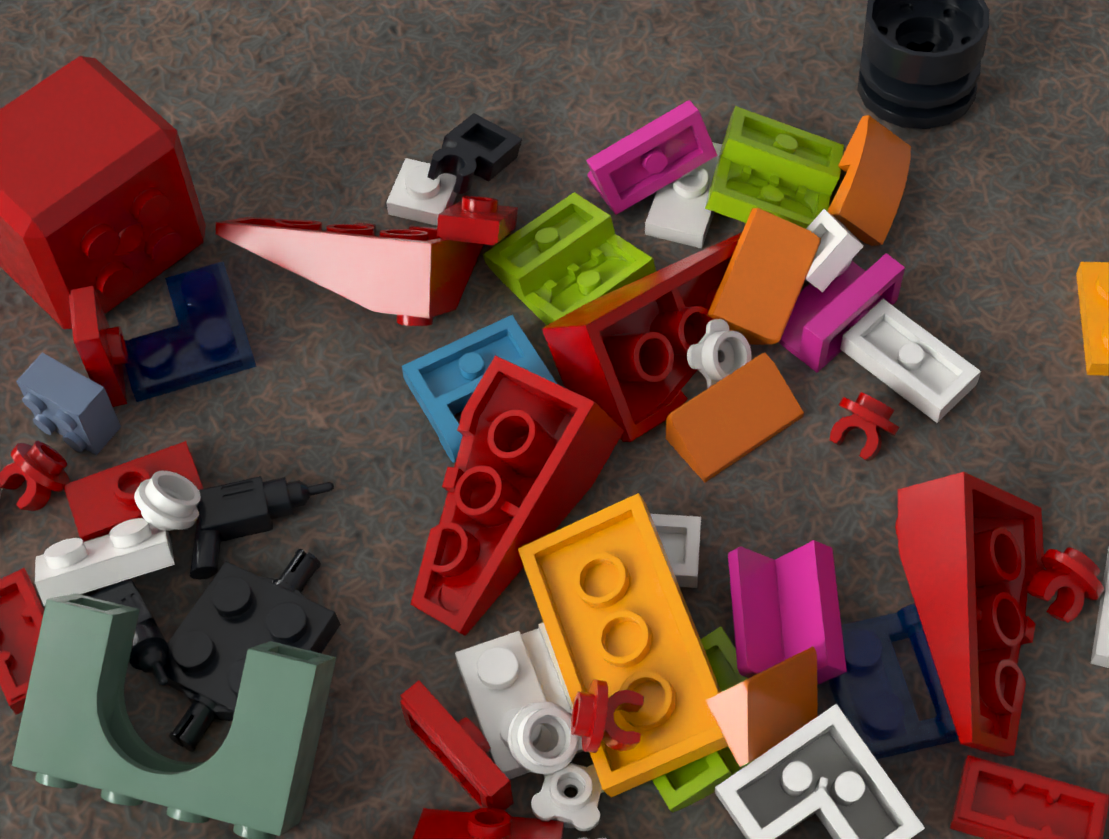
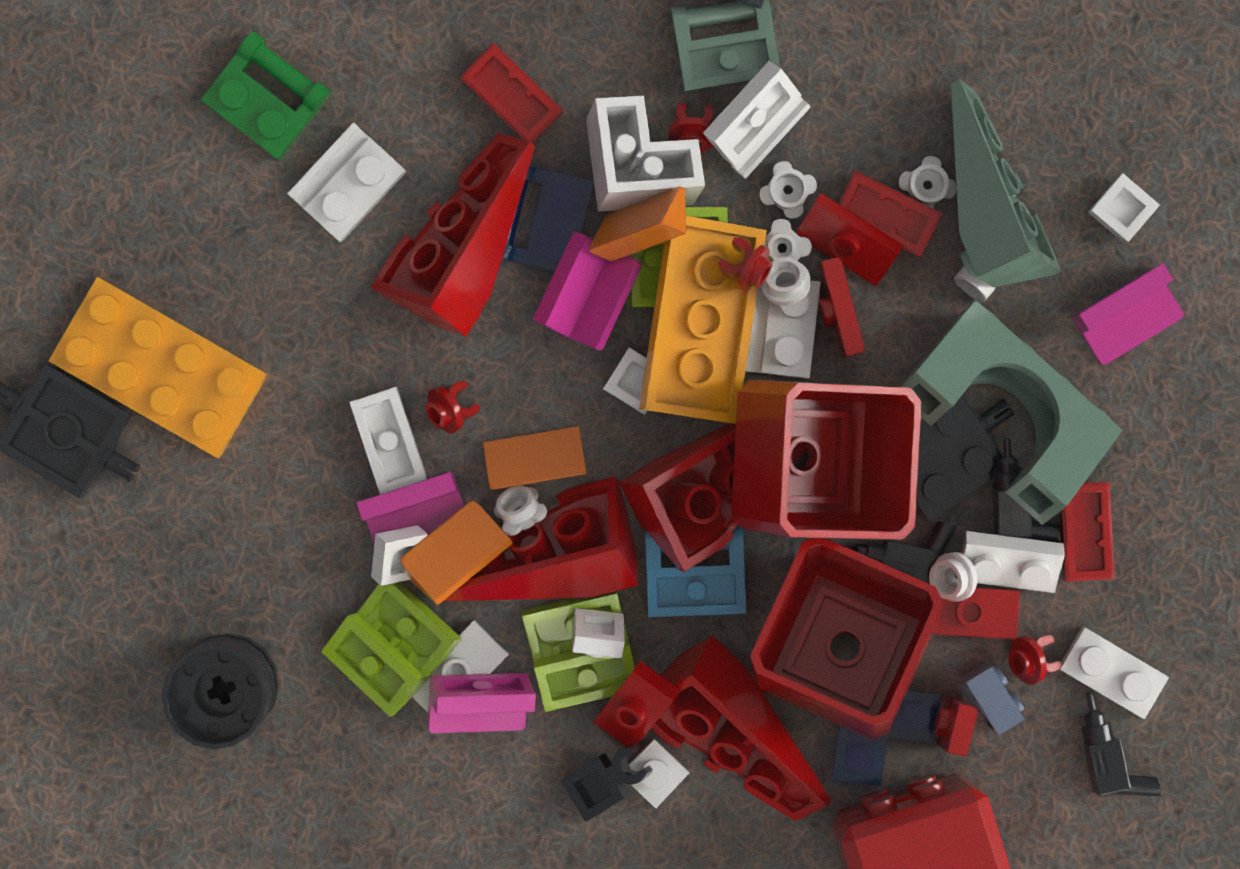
camera: 160 degrees left, 30 degrees up
(257, 306) = (849, 594): none -> red plate
(350, 500) = (857, 466): none -> red plate
(560, 266) = (598, 633): none -> white plate
(873, 183) = (315, 607): orange slope -> none
(1072, 576) = (393, 224): red plate -> none

